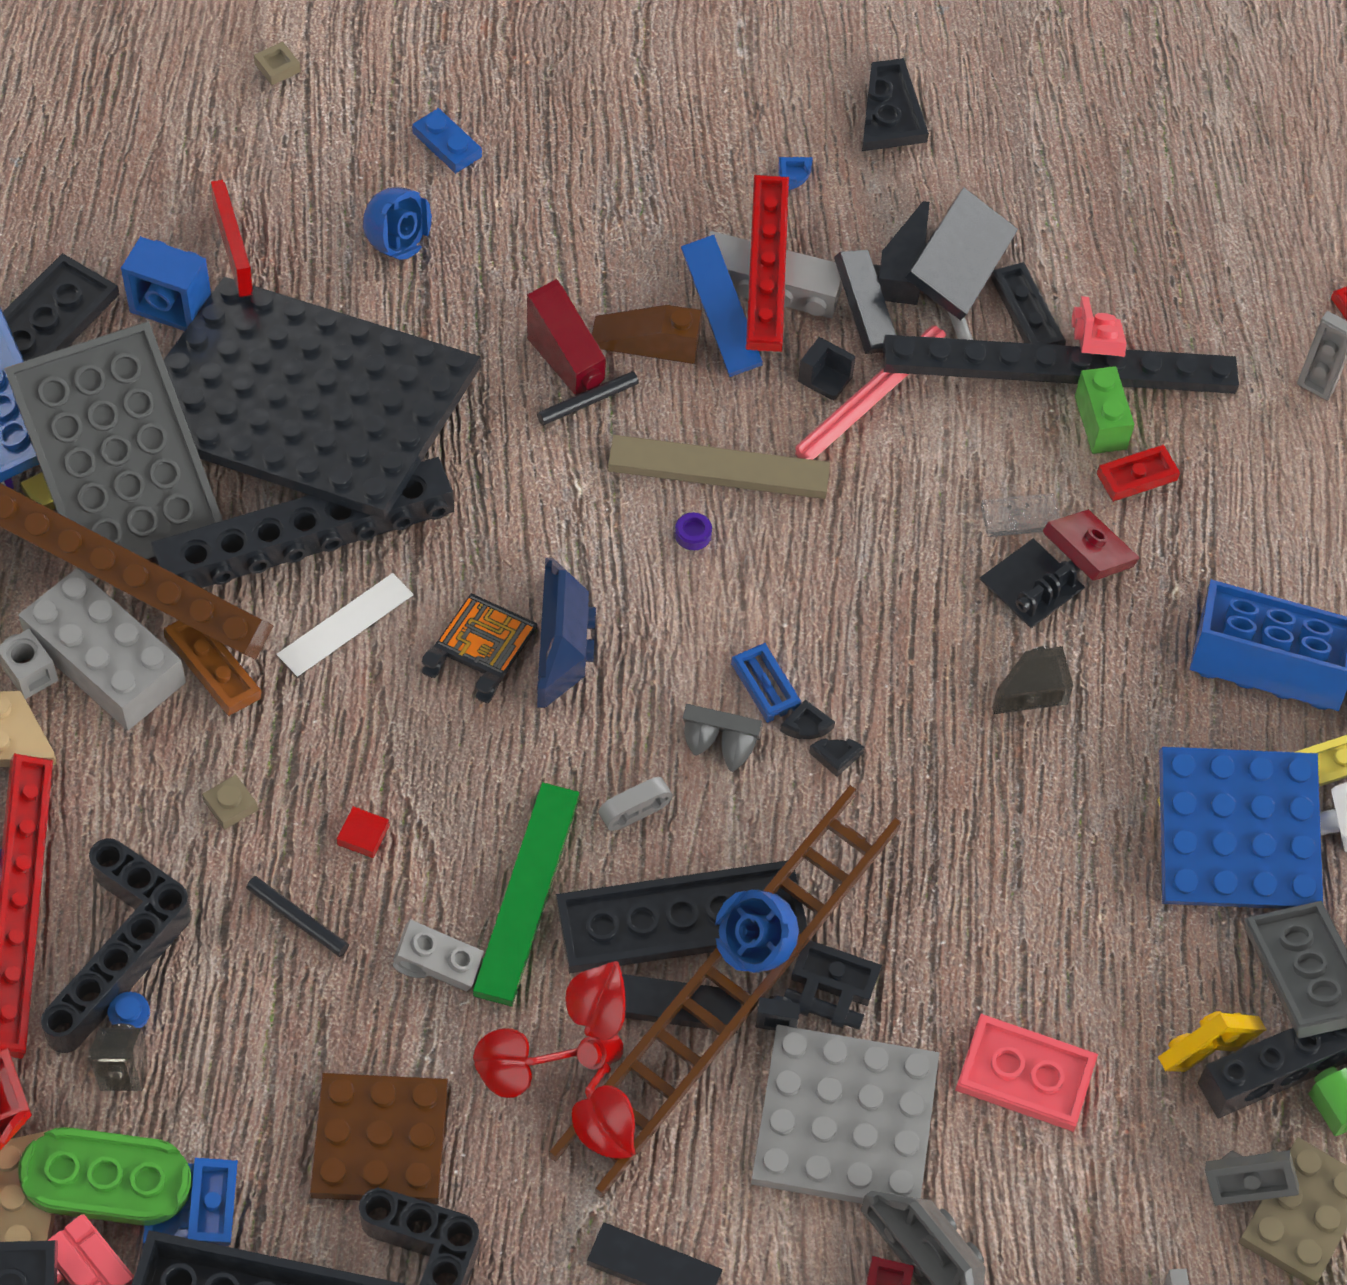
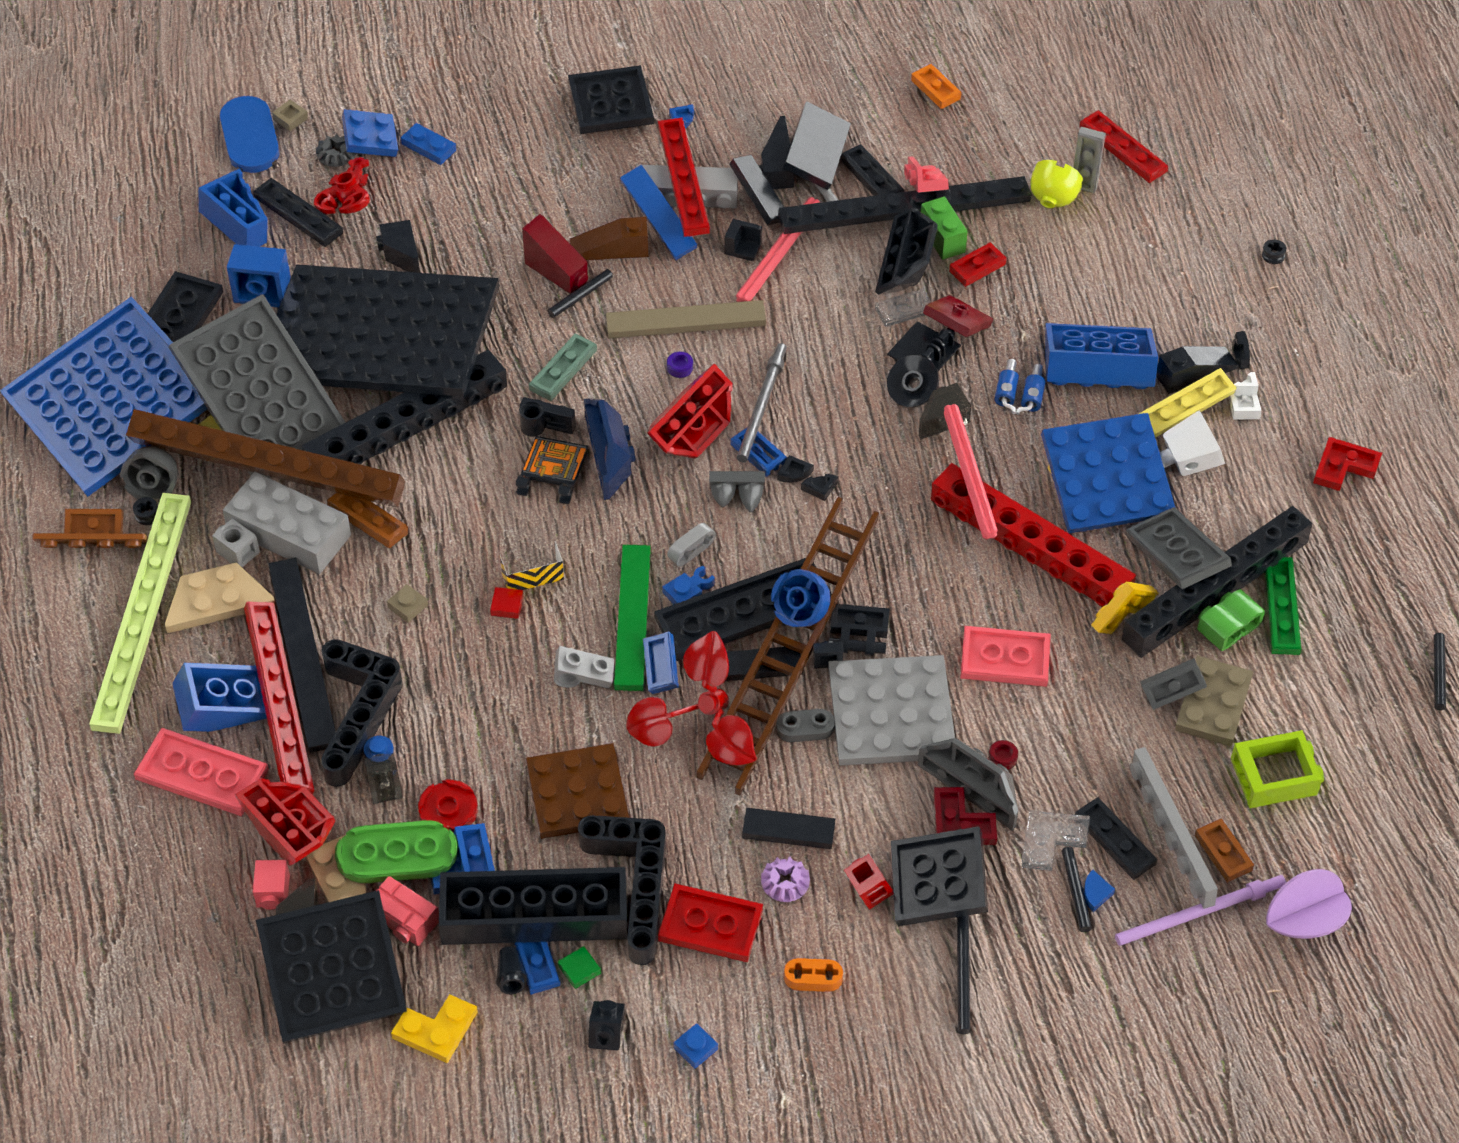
camera: 10 degrees left, 5 degrees down
(69, 846) = (302, 654): none -> black tile
(163, 183) = (233, 209): none -> blue wedge
(199, 1119) = (449, 804): none -> red tile
(218, 78) = (249, 134): none -> blue tile
(231, 238) = (295, 236): red tile -> none
(251, 202) = (298, 212): none -> black tile
(297, 916) = (477, 665): black bar -> none
(312, 131) = (330, 156): none -> dark grey gear
(319, 183) = (346, 189): none -> red animal
(344, 624) = (452, 474): white sticker -> none
(366, 278) = (399, 245): none -> black slope
(373, 110) = (369, 133): none -> blue plate
(397, 221) = (411, 201): blue cylinder -> none
(410, 804) = (535, 576): none -> sticker
(491, 569) = (538, 415): none -> black plate
(535, 500) = (562, 367): none -> sand green tile
(544, 973) = (660, 663): none -> tile
(612, 868) = (687, 587): none -> blue plate
(689, 615) = (695, 415): none -> red wedge
(704, 128) = (610, 99): none -> black plate
(719, 1115) = (805, 725): none -> dark grey plate
(819, 564) = (774, 367): none -> flat silver bar
(892, 108) = (740, 60): black wing -> none
(984, 1225) = (1004, 753): none -> dark red tile
(991, 617) = (905, 373): none -> black dish
(1043, 435) = (906, 251): none -> black wedge
(1045, 787) = (970, 471): none -> coral axle
(1105, 879) = (1035, 538): none -> red brick
(1148, 199) = (936, 86): none -> orange plate
(1166, 678) = (1032, 392): none -> blue piece
(1273, 380) = (1054, 184): none -> neon yellow cylinder

